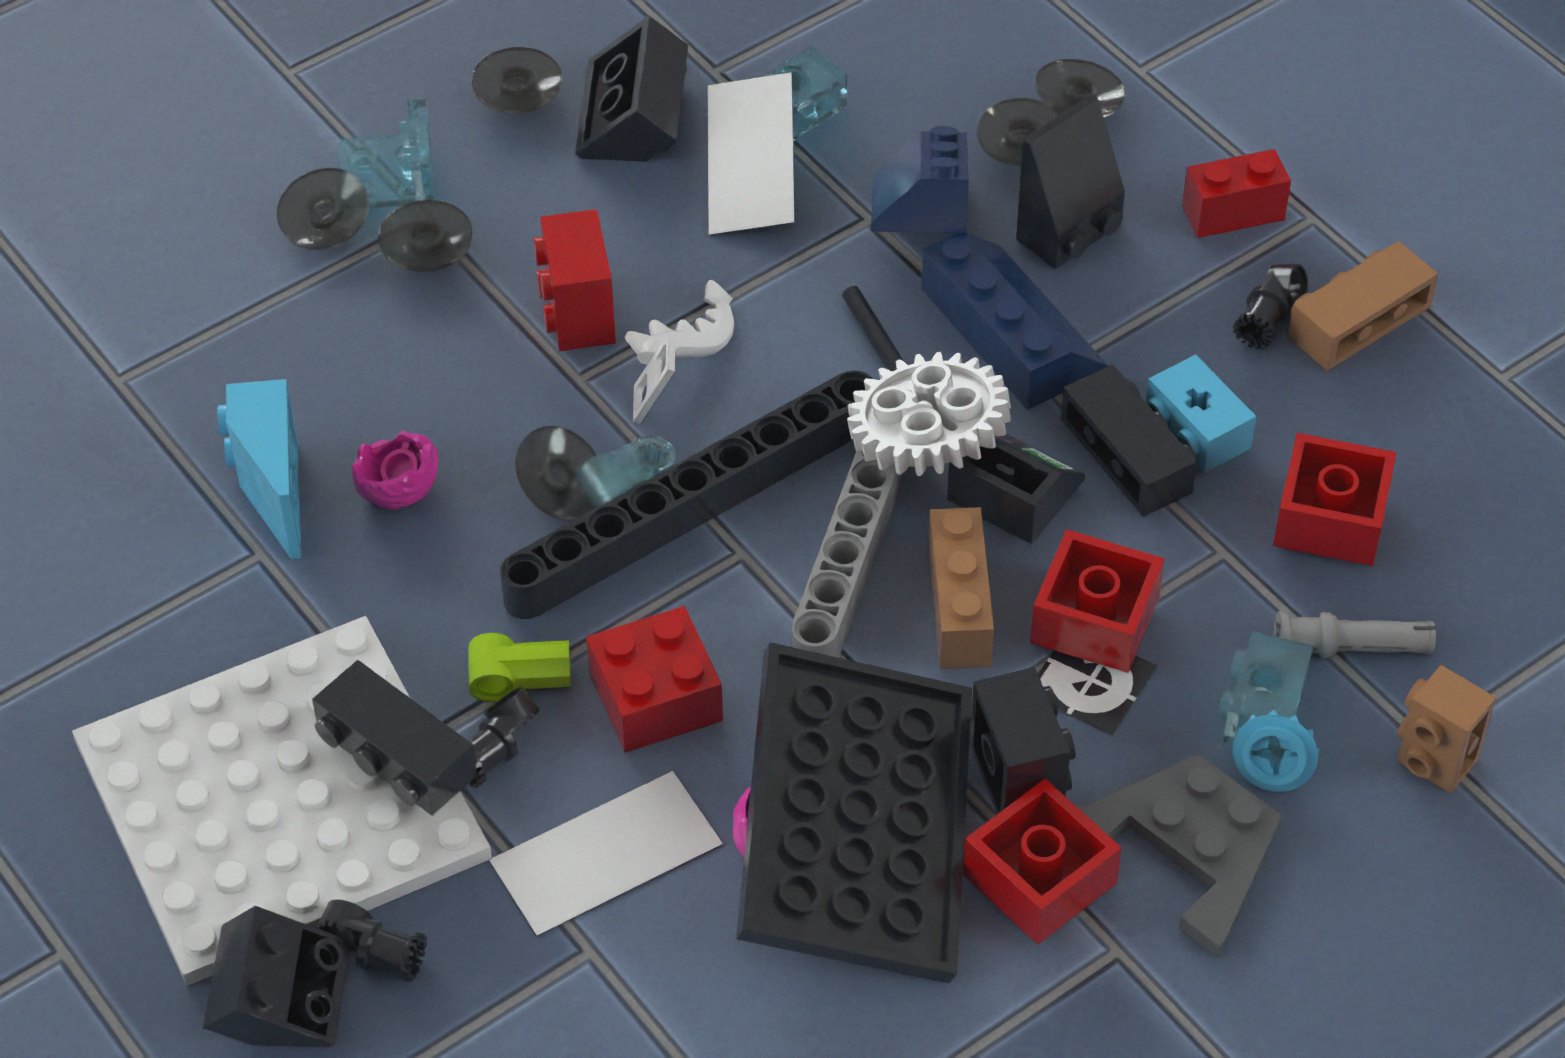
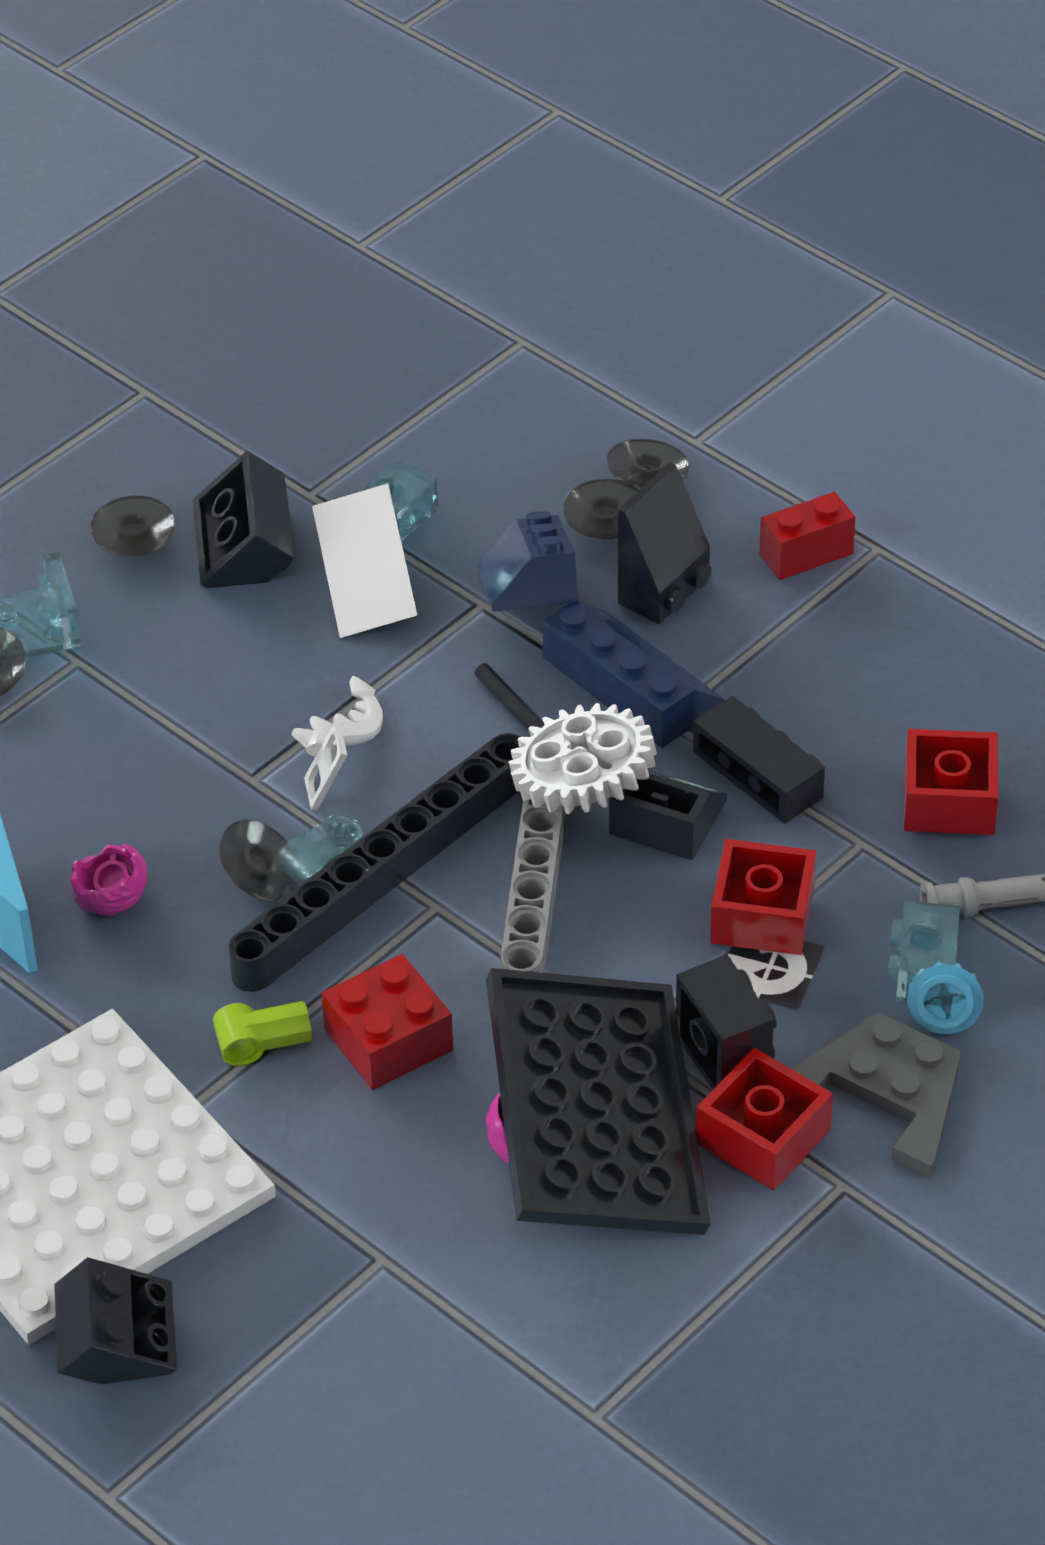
camera: 10 degrees left, 5 degrees down
(372, 942) = (189, 1279): black connector -> none
(394, 738) = (170, 1103): black brick -> none
(425, 235) = (83, 673): clear smoke dish -> none
(495, 738) = (255, 1093): black connector -> none
(575, 280) = (234, 691): red brick -> none
(605, 852) = (375, 1175): white sticker -> none
(960, 588) = (640, 905): medium nougat brick -> none
(1202, 412) = (819, 725): medium azure brick -> none
(1270, 304) = (857, 626): black connector -> none
(1362, 305) = (938, 615): medium nougat brick -> none

